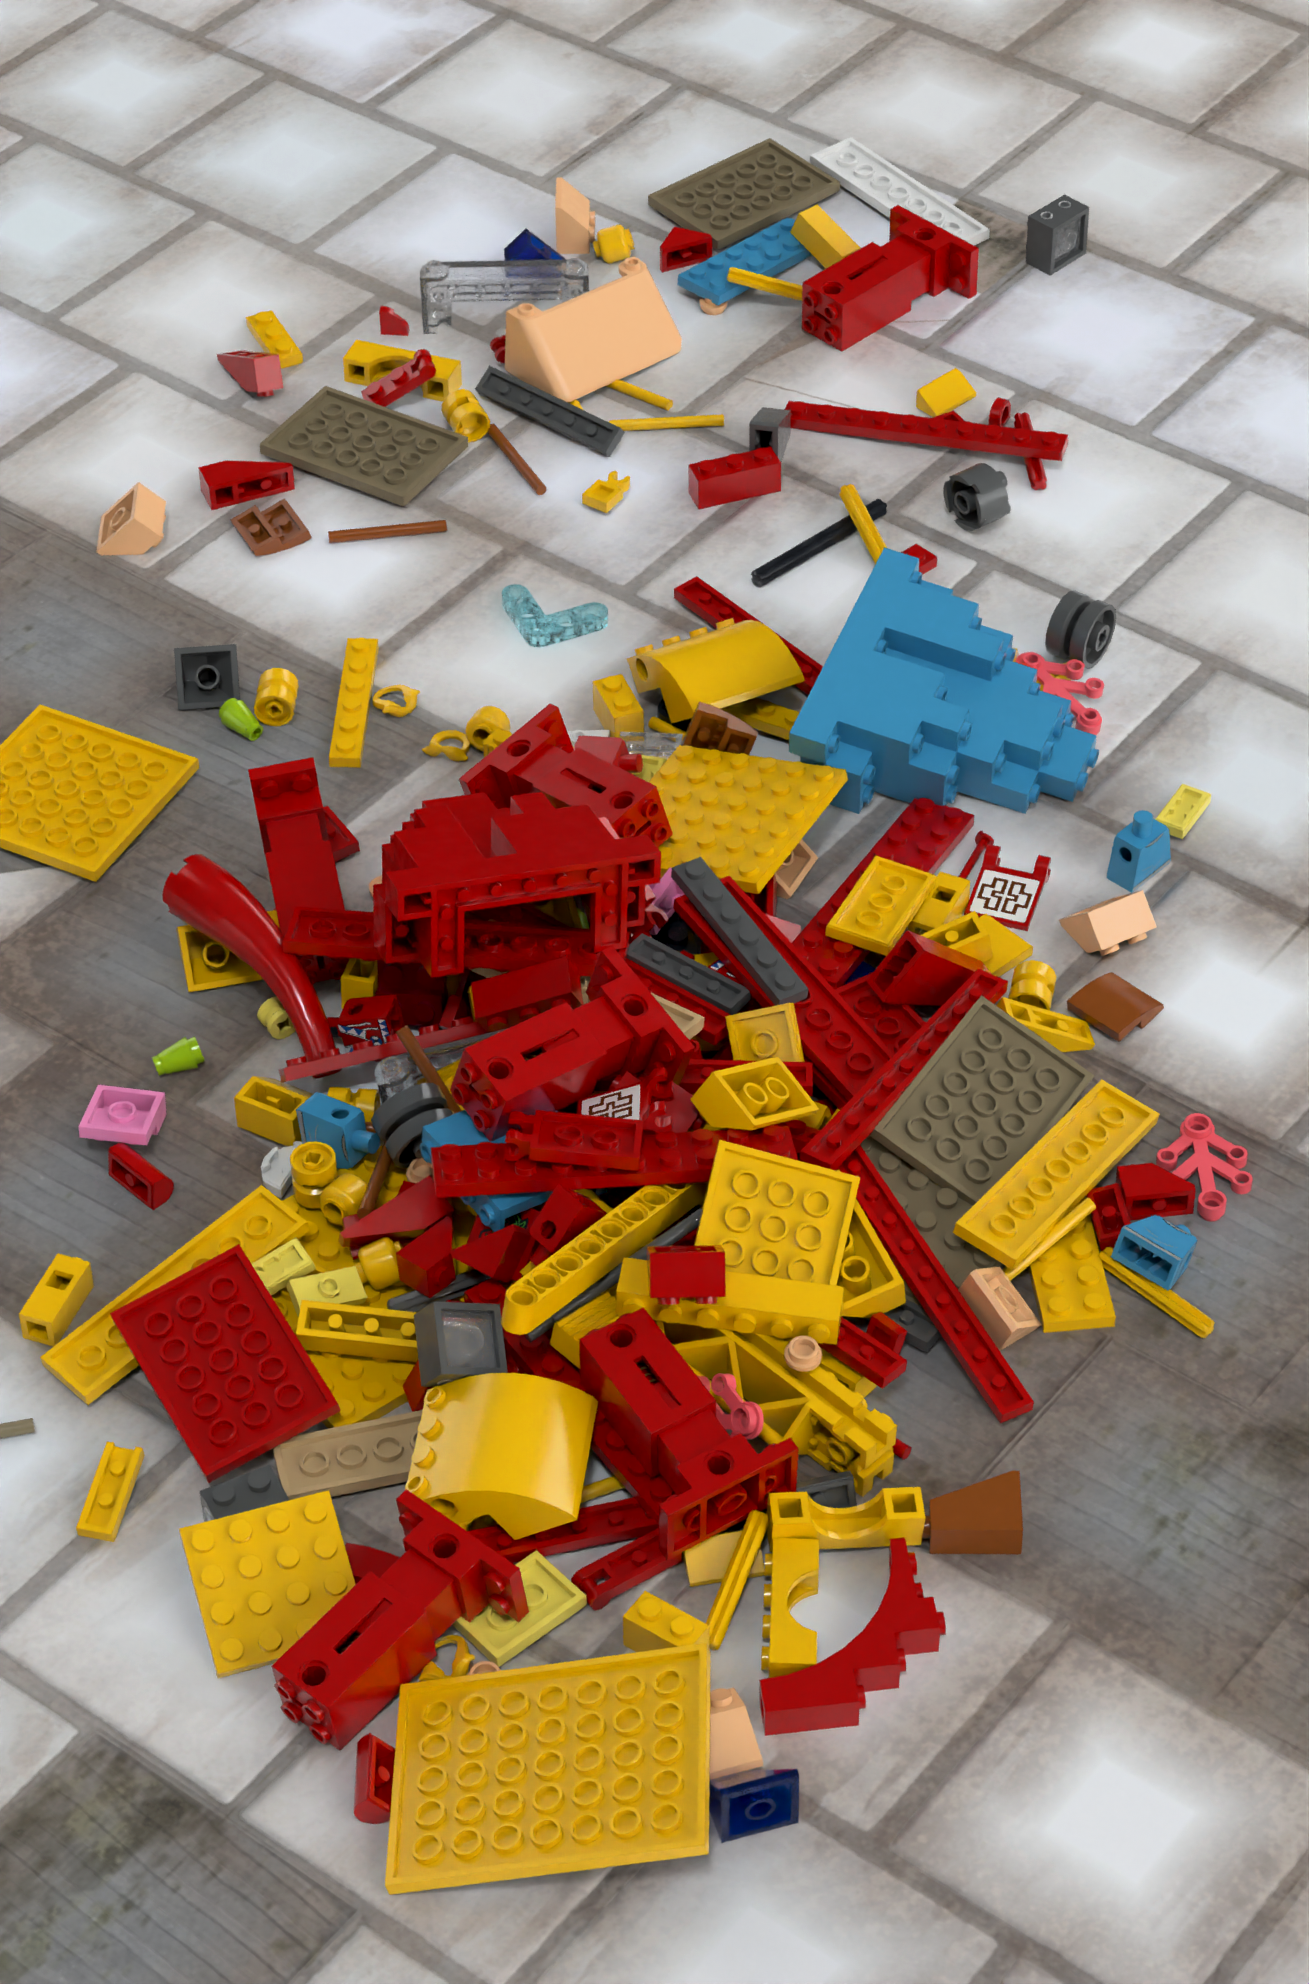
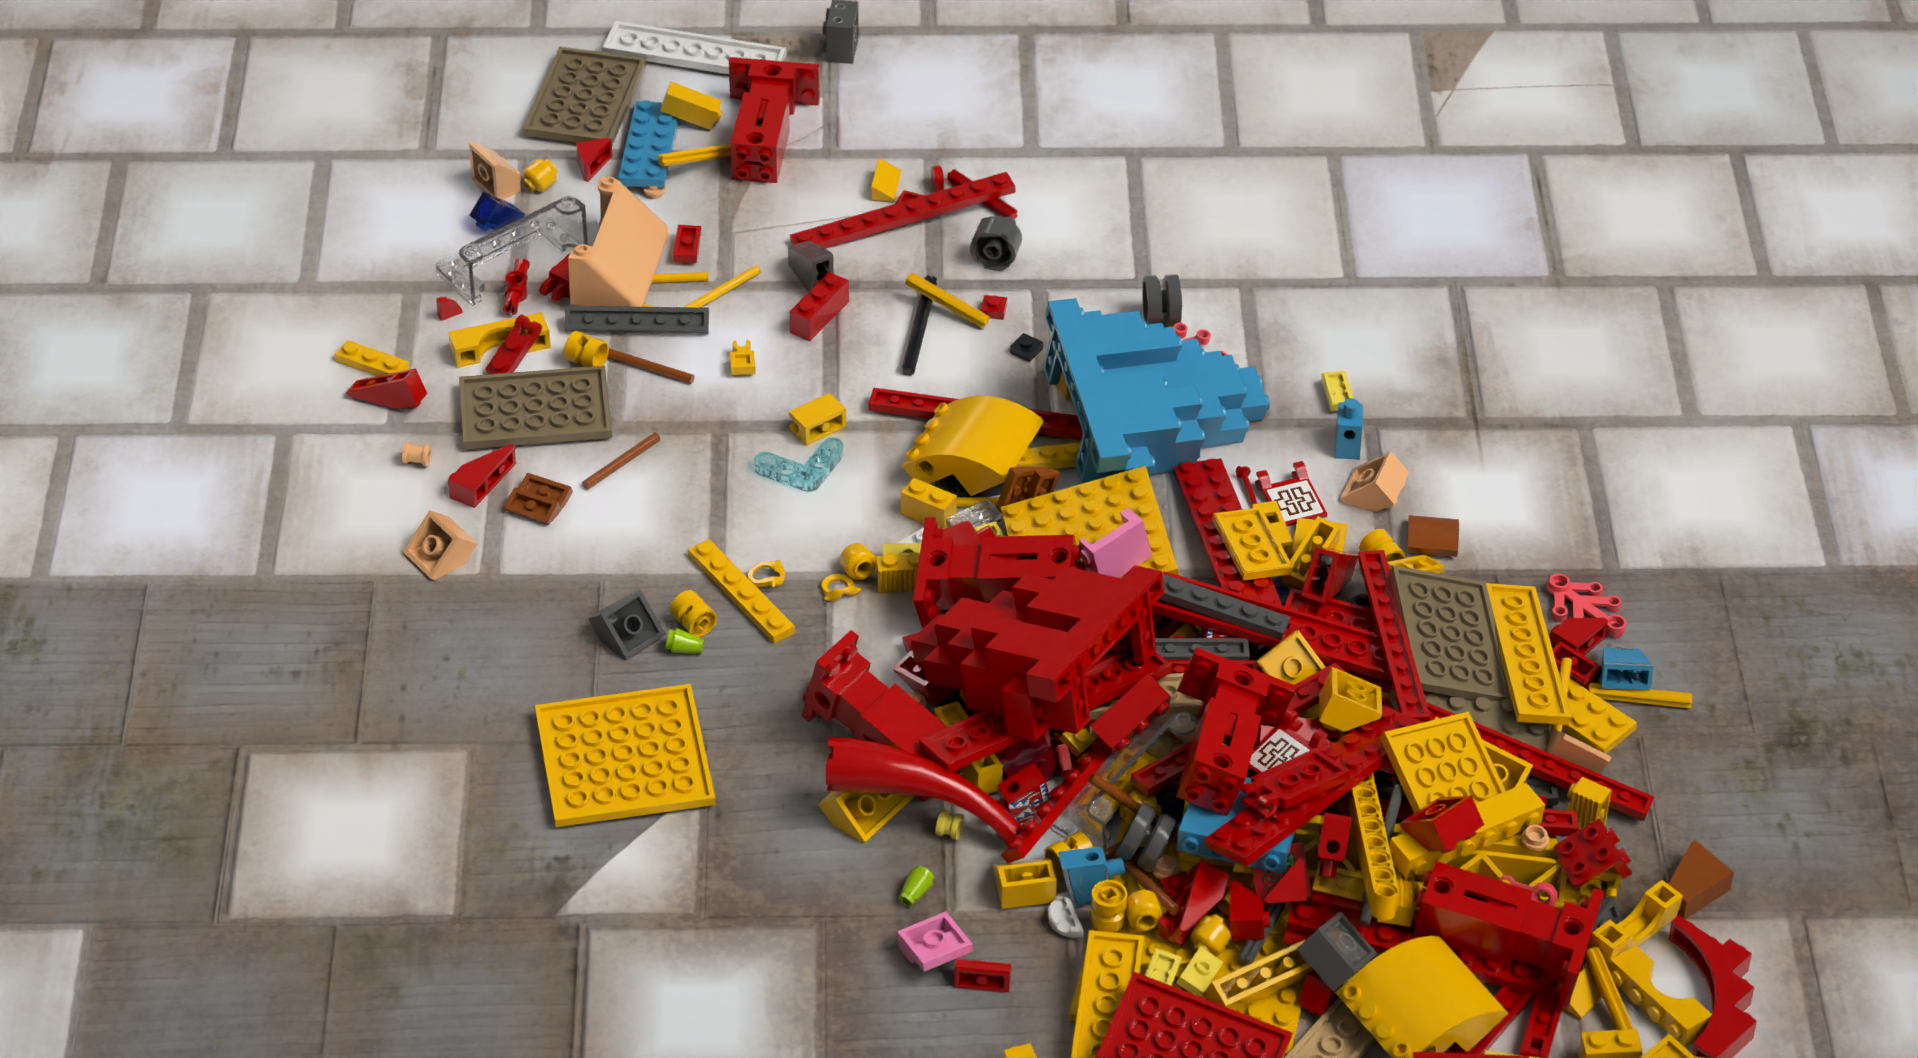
camera: 40 degrees left, 0 degrees up
(206, 432) = (416, 454): none -> light nougat bush
(473, 332) = (516, 286): none -> red pin
(609, 580) = (817, 419): none -> yellow brick
(680, 365) = (687, 243): none -> red plate
(700, 828) = (1119, 549): none -> bright pink panel
(849, 1402) = (1592, 853): none -> red bracket
(938, 1369) = (1589, 801): none -> yellow brick

